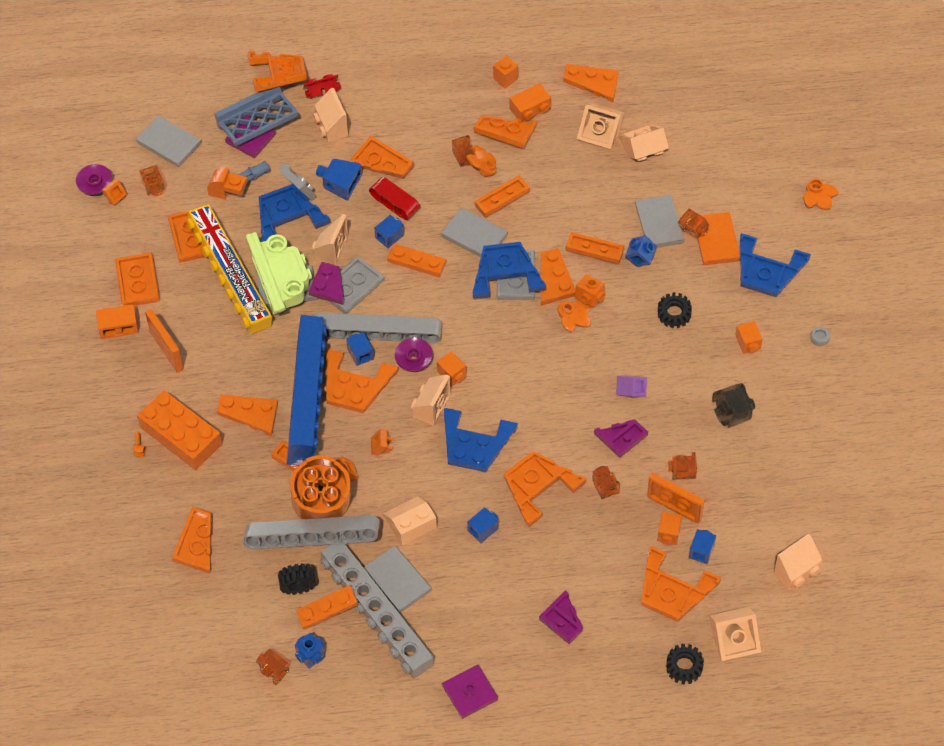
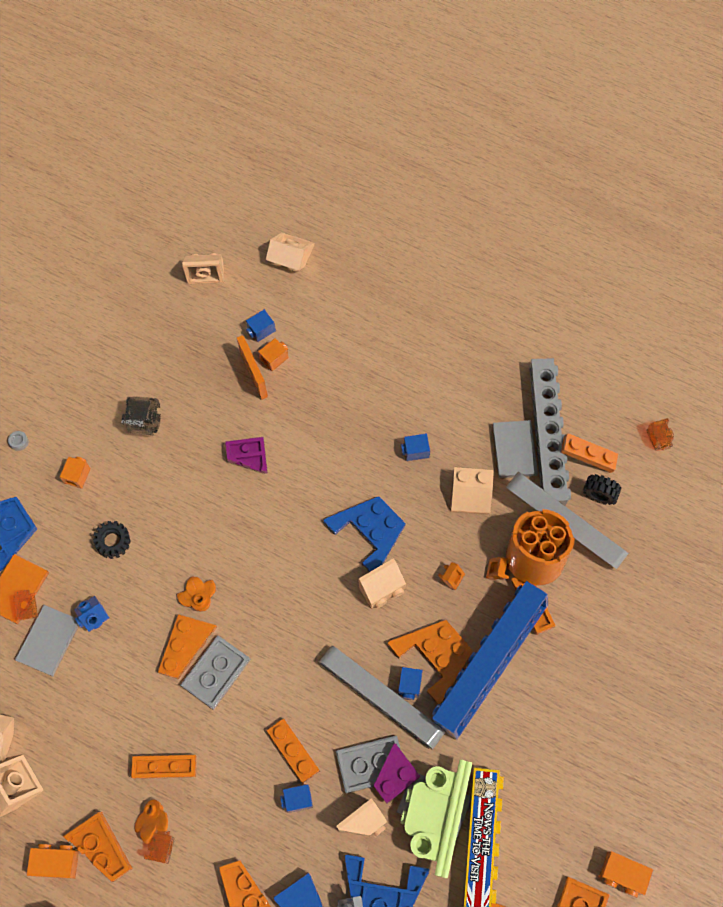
camera: 145 degrees left, 10 degrees up
(139, 450) = (673, 711): orange hand -> none
(164, 340) = (593, 809): orange tile -> none
(179, 430) = (626, 704): orange brick -> none
(194, 542) = (668, 585): orange wing -> none
(254, 412) = (548, 687): orange wing -> none
(309, 650) = (624, 427): blue brick -> none
(394, 198) = (266, 837): red beam -> none
(413, 348) = (370, 634): magenta dish -> none
(452, 366) = (342, 607): orange brick -> none
(470, 691) = (515, 328): magenta plate -> none
(472, 232) = (220, 743): light grey tile -> none
(505, 261) = (220, 684): blue wing -> none
(532, 477) = (346, 464): orange wing -> none
(562, 618) = (407, 338): magenta wing -> none
(590, 291) = (167, 601): orange brick -> none
(595, 248) = (126, 649): orange plate -> none
(605, 482) = (292, 422): clear orange brick -> none
(631, 386) = (205, 492): medium lavender panel -> none
(670, 595) = (314, 307): orange wing -> none
(683, 467) = (221, 396): clear orange brick -> none
(684, 675) = (343, 243): black tyre -> none

